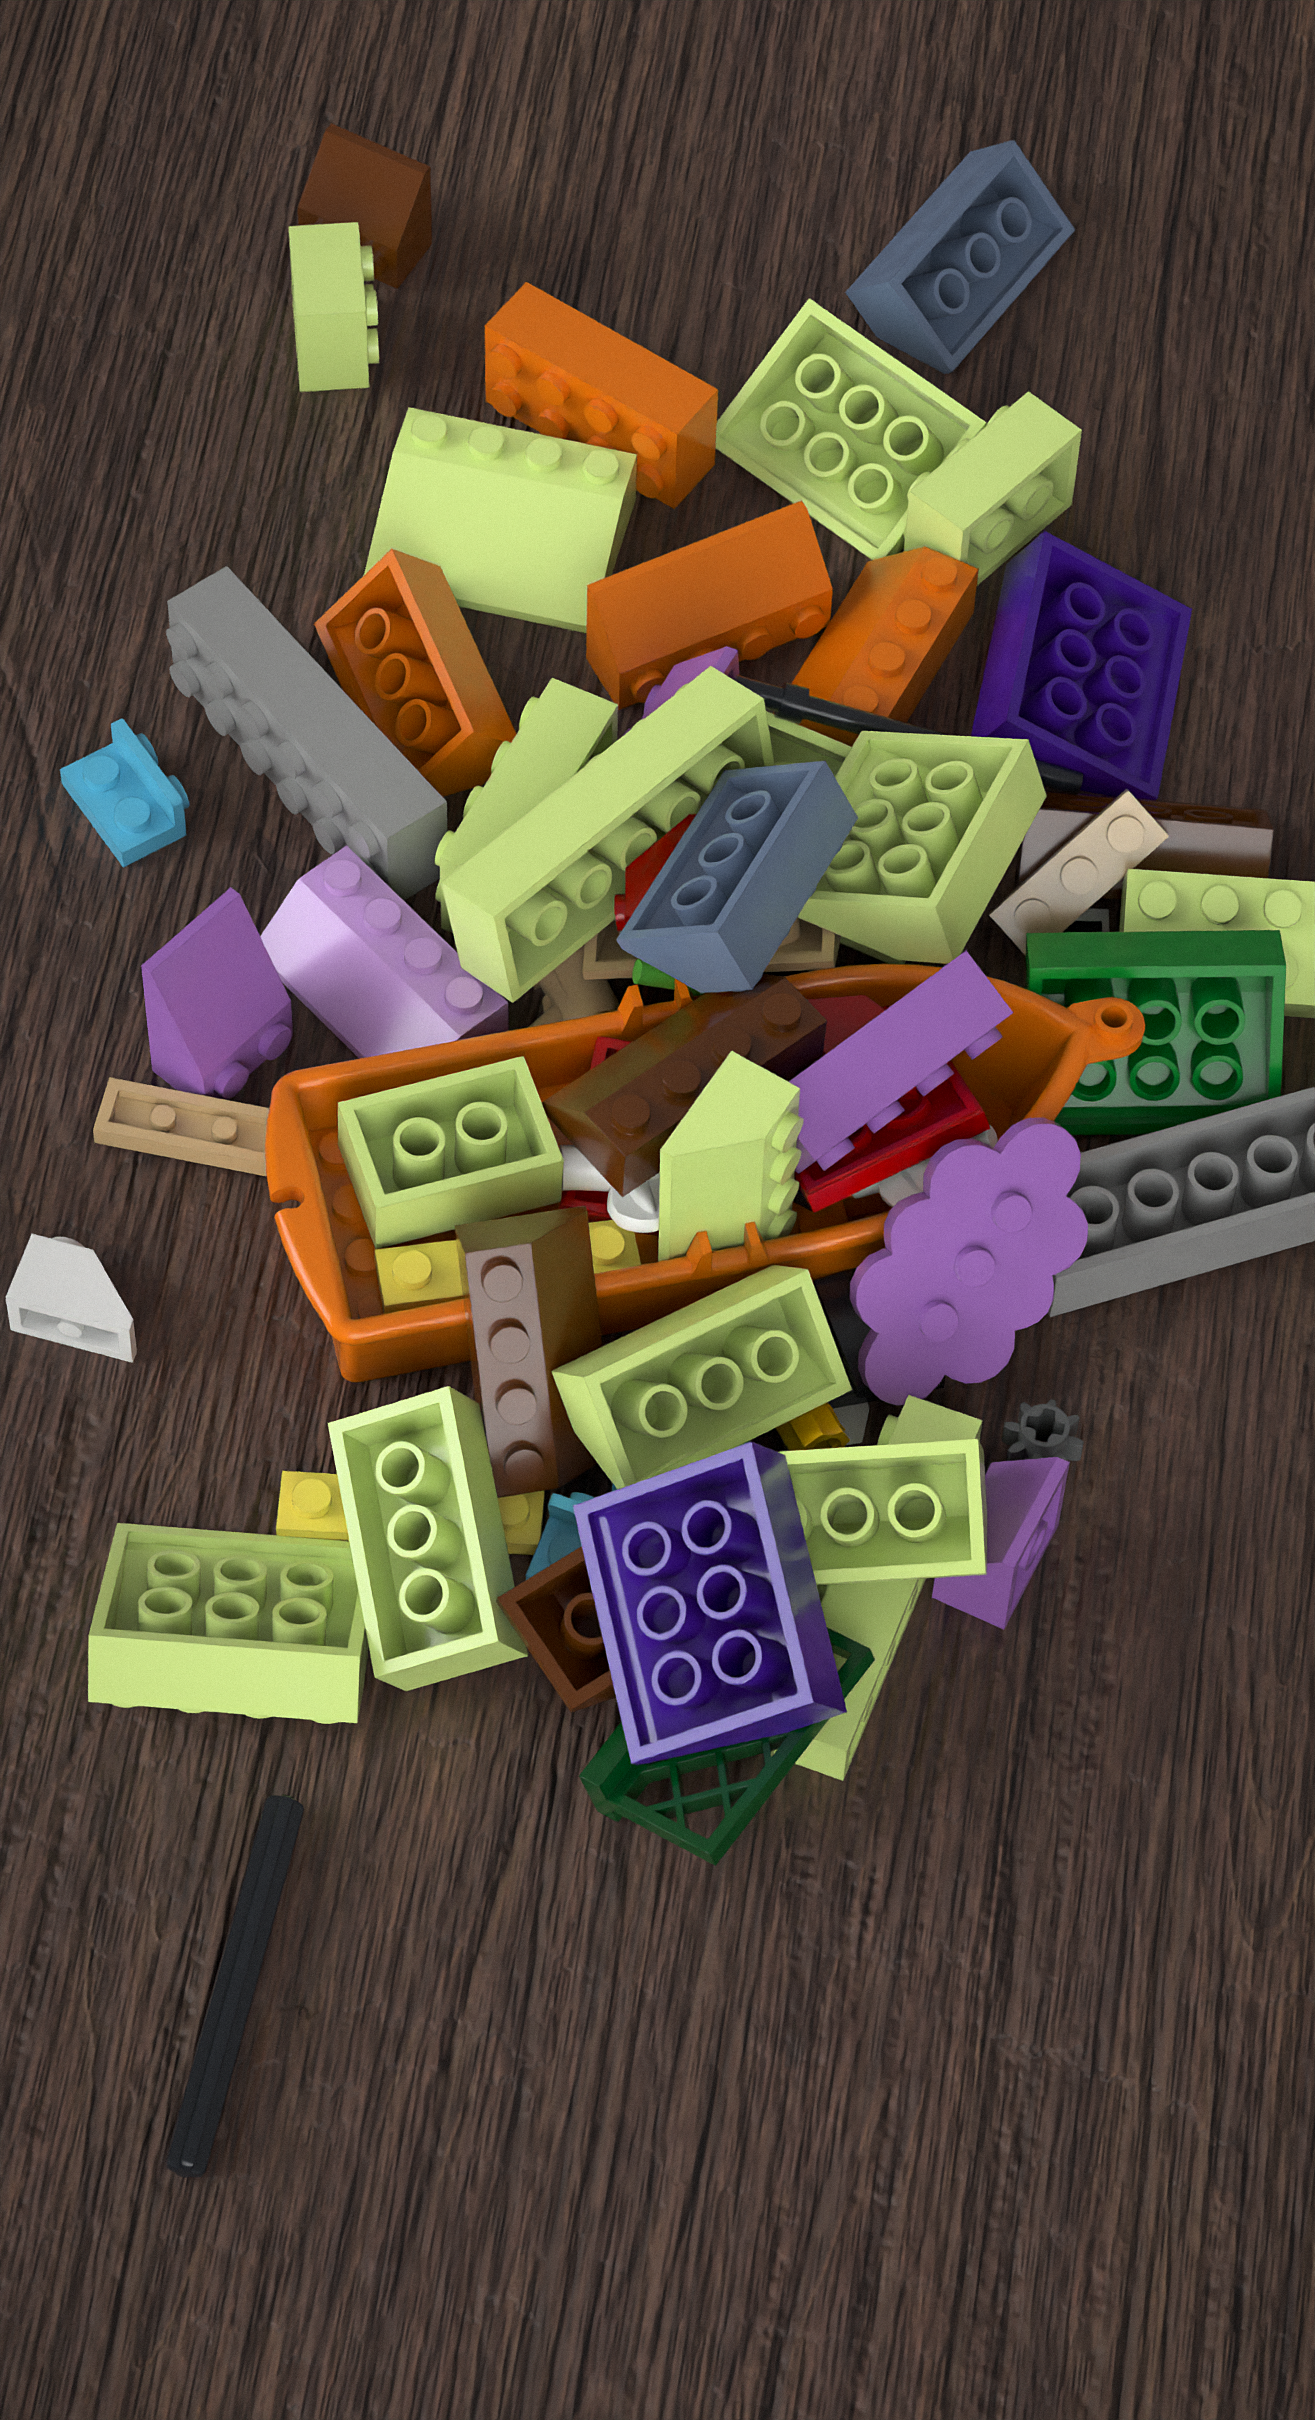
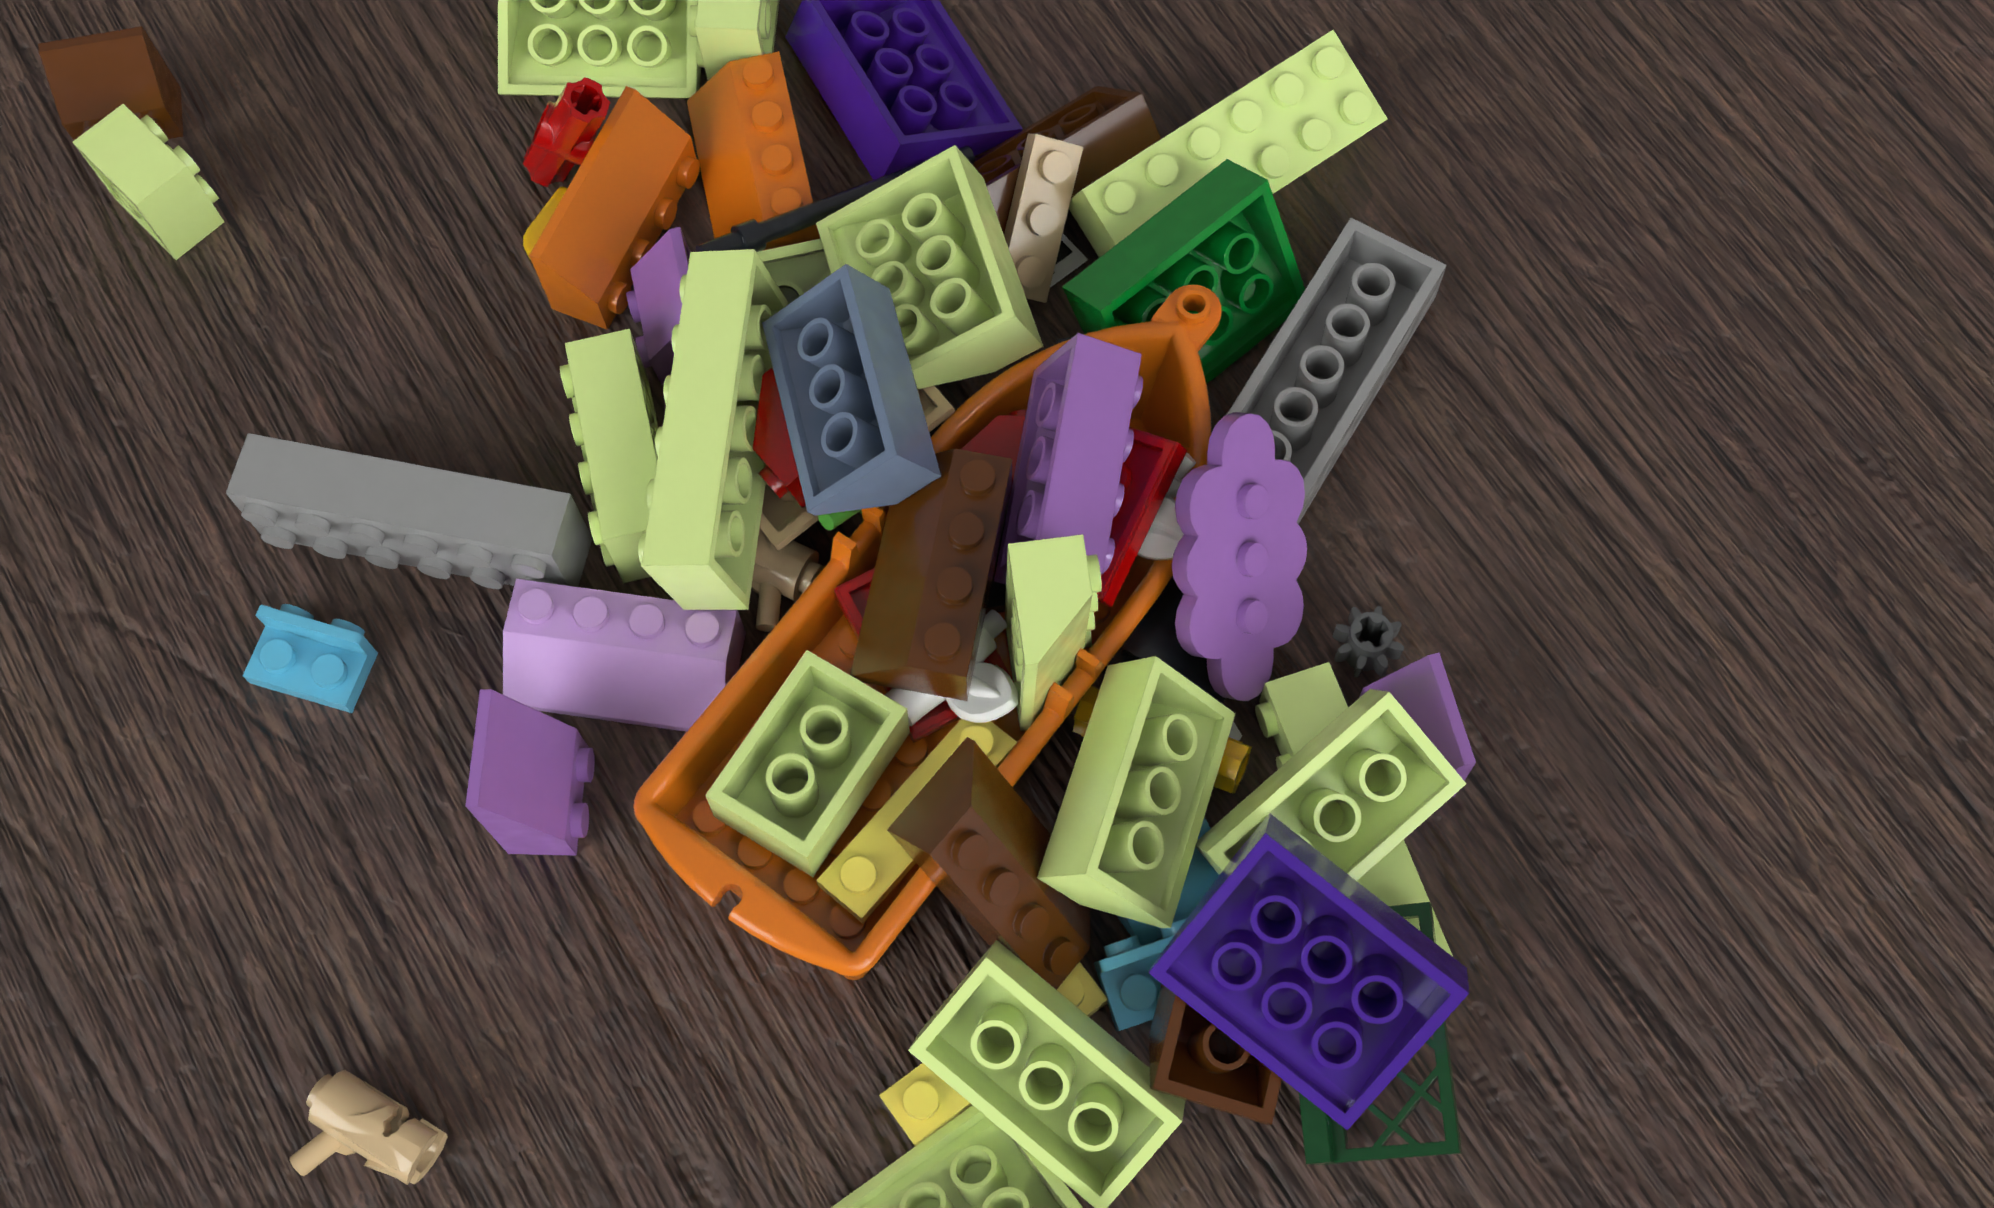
camera: 35 degrees left, 10 degrees up
(69, 1299) = (606, 1088): white slope -> none
(182, 1126) = (577, 881): tan plate -> none
(417, 671) = (448, 407): orange slope -> none
(506, 514) = (408, 252): yellowish green slope -> none
(600, 390) = (403, 110): orange brick -> none
(718, 503) = (566, 131): none -> red piece

